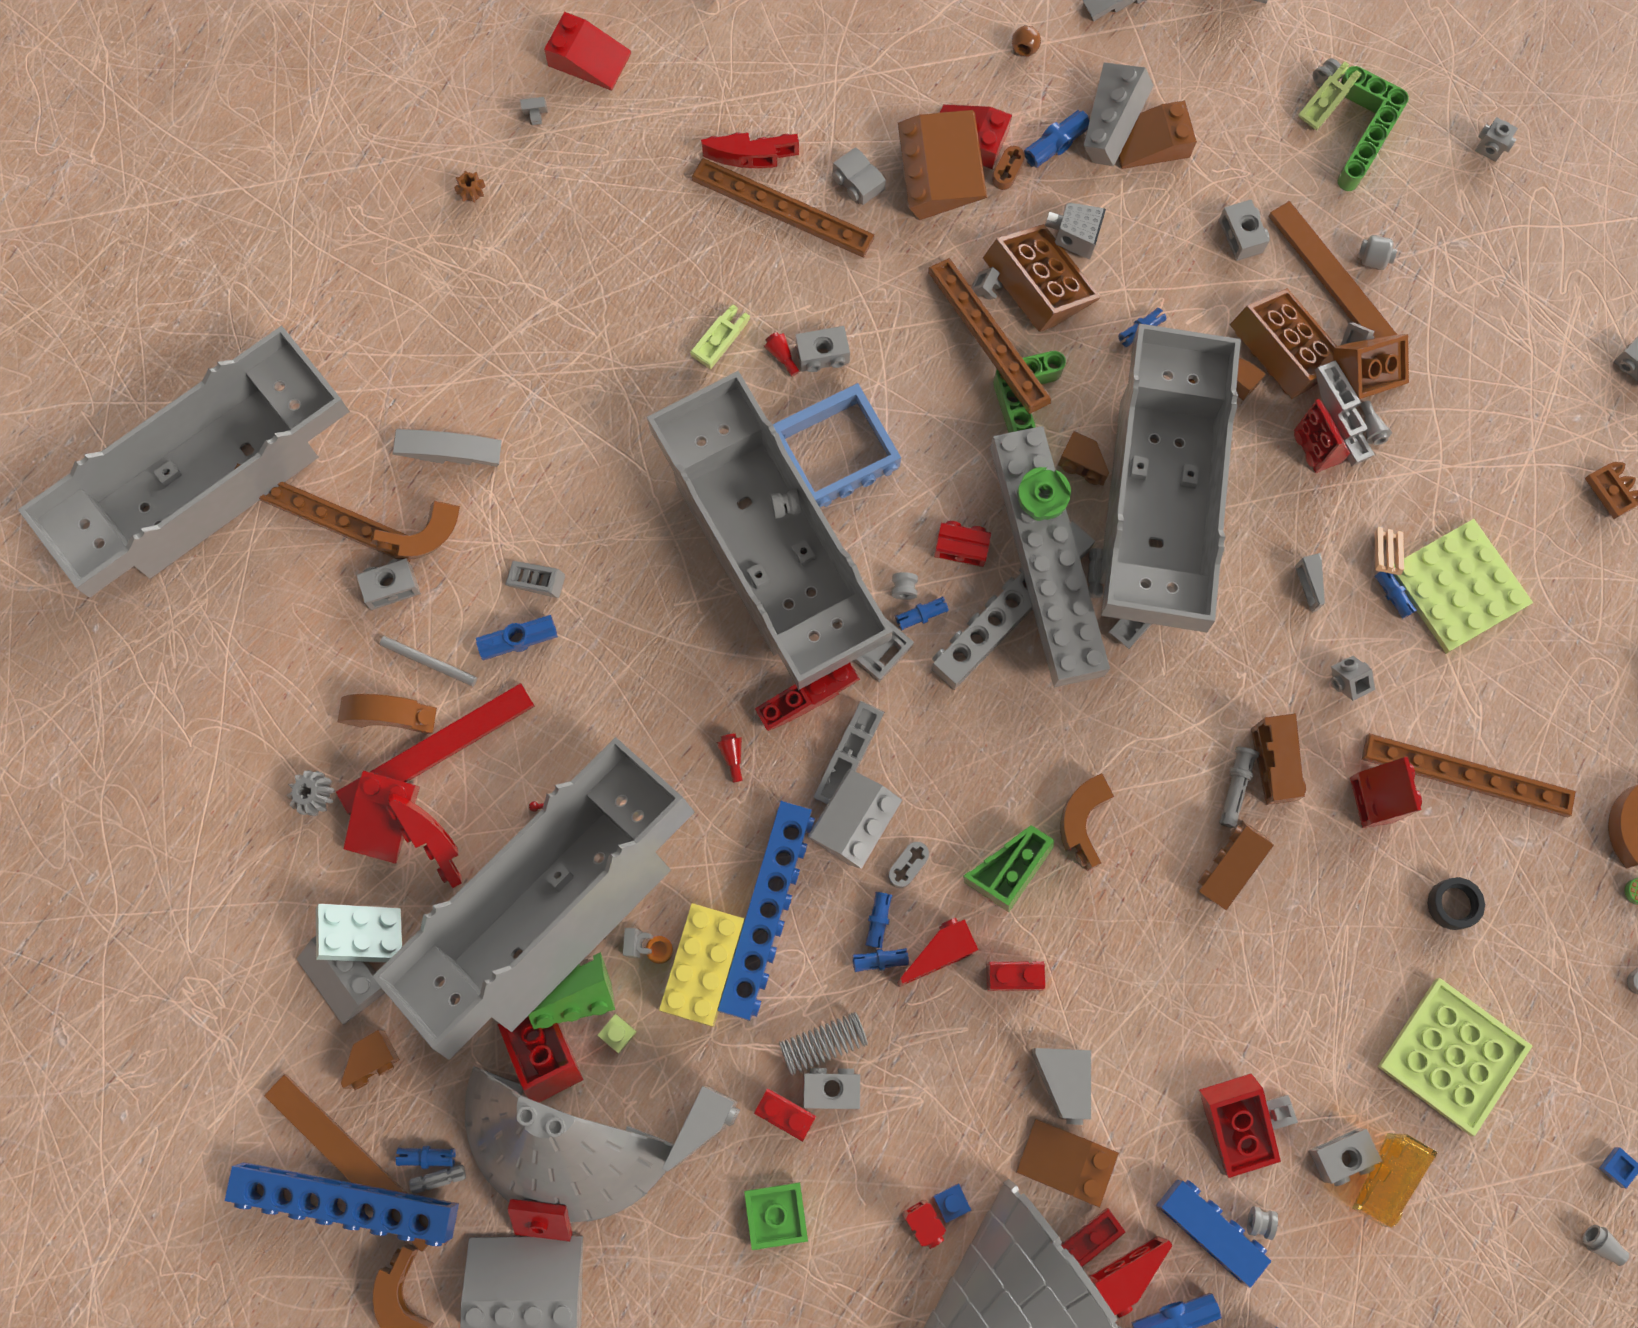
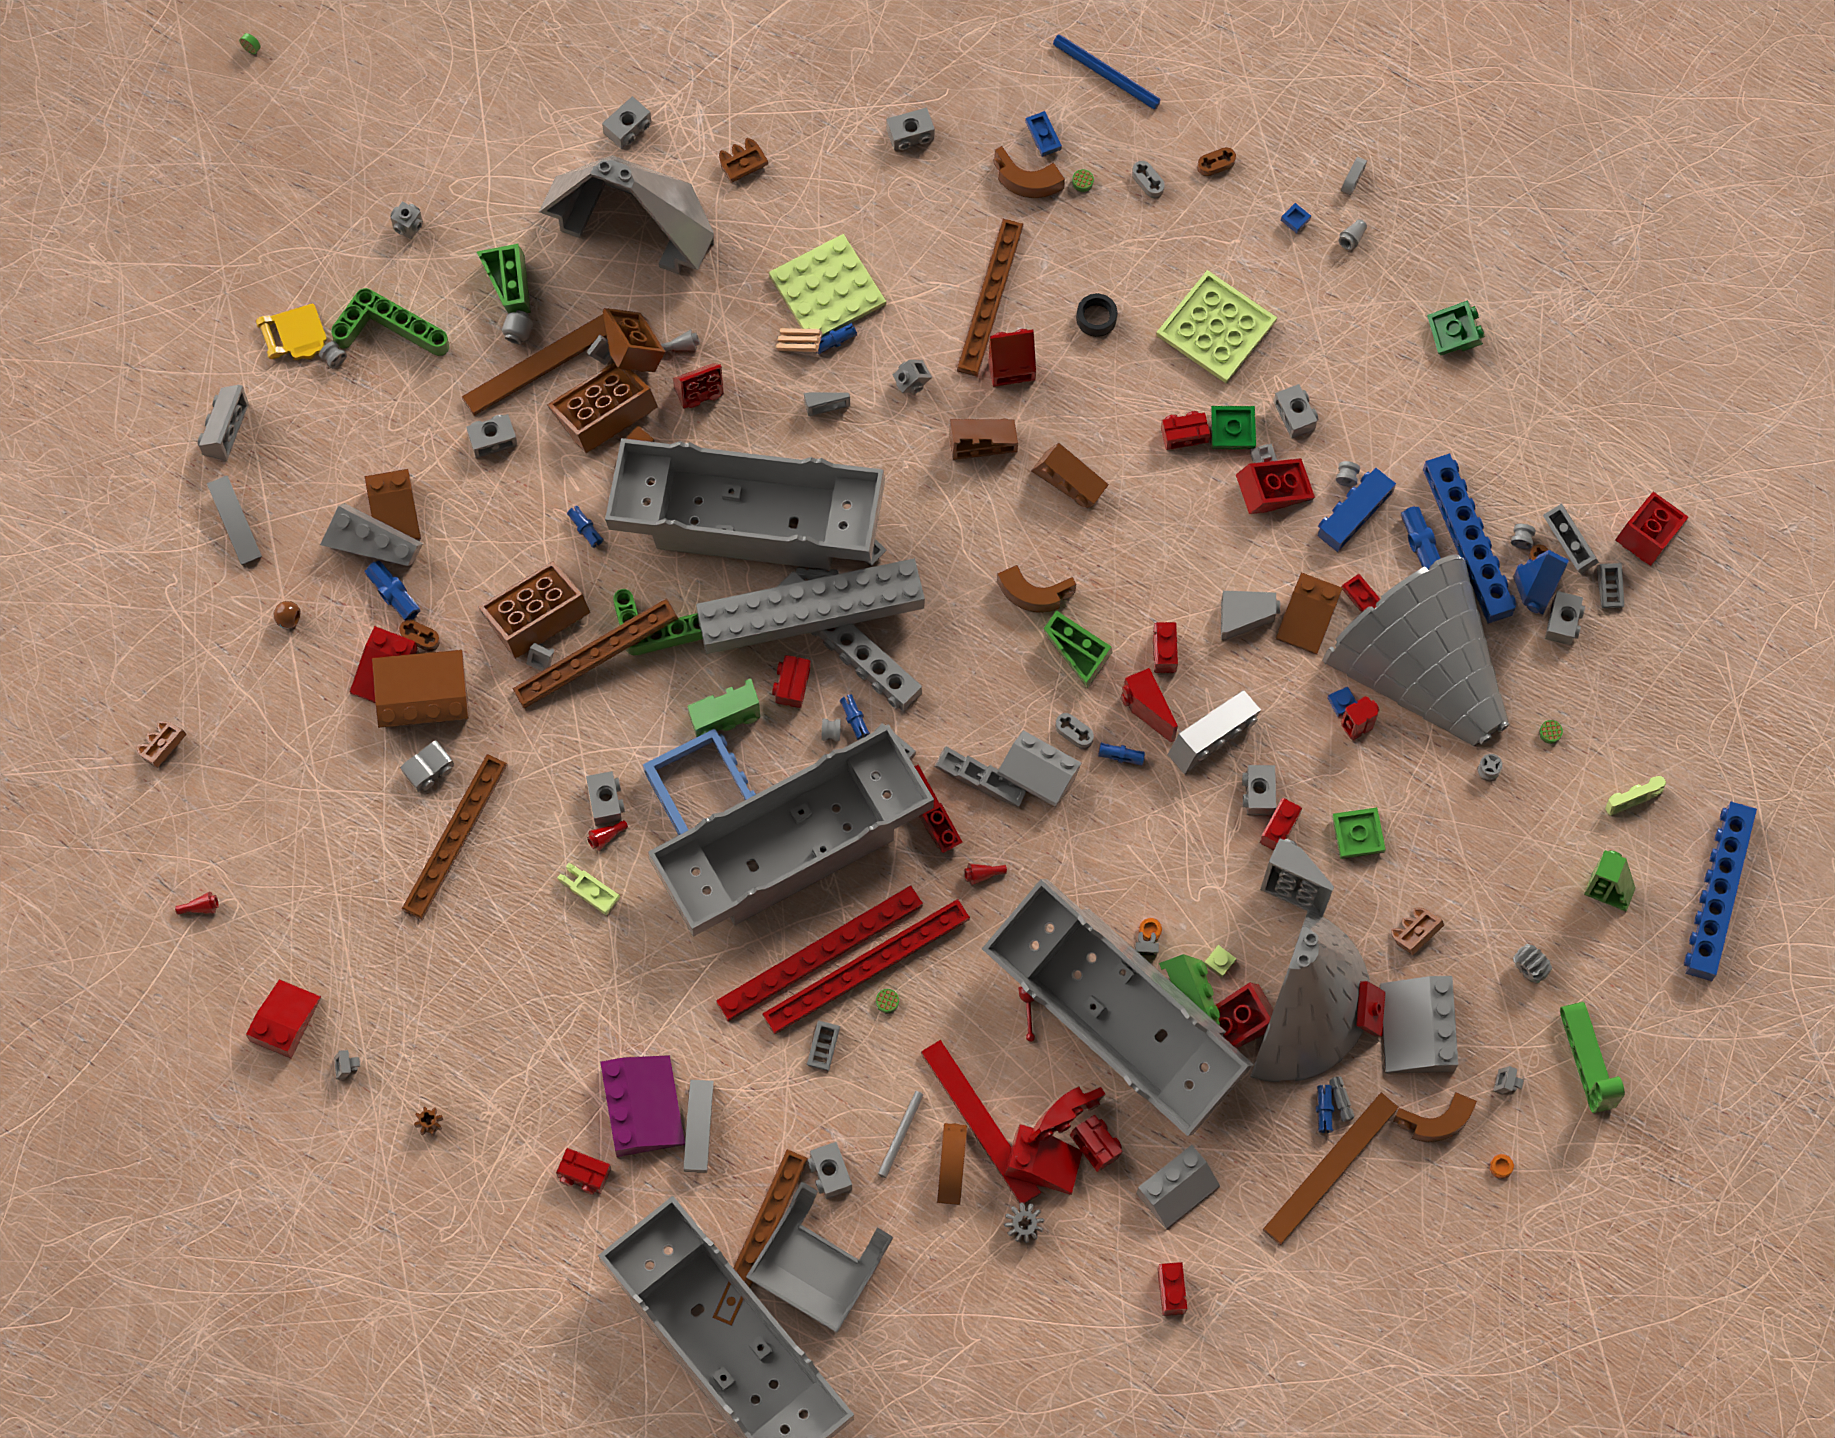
camera: 90 degrees left, 5 degrees down
(217, 961) = (1172, 1289): none -> red brick
(244, 1195) = (1346, 1247): blue brick -> none
(275, 562) = (812, 1270): none -> light grey piece
(357, 933) = (1147, 1166): light aqua plate -> none
(368, 1057) = (1248, 1159): dark orange slope -> none
(397, 878) = (1096, 1142): none -> red brick
(405, 334) = (583, 1171): none -> red brick
(439, 527) = (787, 1133): dark orange arch -> none
(476, 389) = (642, 1104): none -> magenta slope
(500, 641) = (884, 1068): blue piece -> none
(583, 647) = (887, 1001): none -> tile
(624, 626) = (866, 966): none -> red plate
(643, 577) = (819, 953): none -> red plate
(645, 1287) = (1417, 931): none -> dark orange plate
(702, 965) = (1163, 891): light yellow brick -> none
(741, 152) = (396, 871): red slope -> none
(787, 816) = (1122, 852): blue brick -> none
(787, 1050) = (1227, 827): light grey piece -> none
(791, 501) = (765, 819): light grey wheel -> none
(880, 960) = (1154, 752): blue pin -> none
(908, 1035) = (1213, 731): none -> wedge
(925, 471) = (726, 710): none -> bright green wedge
(1049, 480) = (763, 614): bright green plate -> none
(1077, 228) = (488, 575): light grey torso -> none
(1085, 459) = (712, 577): dark orange slope -> none
(1129, 1276) = (1386, 563): red slope -> none
(1240, 774) = (994, 468): light grey pin -> none
(1308, 1010) = (1185, 430): none -> red brick
(1316, 1073) = (1233, 427): none -> green plate
(1327, 98) = (361, 355): yellowish green hinge -> none
(1341, 402) = (667, 366): light grey slope -> none
(1352, 43) = (298, 330): none -> yellow piece
(1394, 1179) = (1313, 376): clear yellow wedge -> none
(1437, 241) = (508, 275): none -> bright green wedge
(1551, 373) = (665, 198): none -> light grey piece

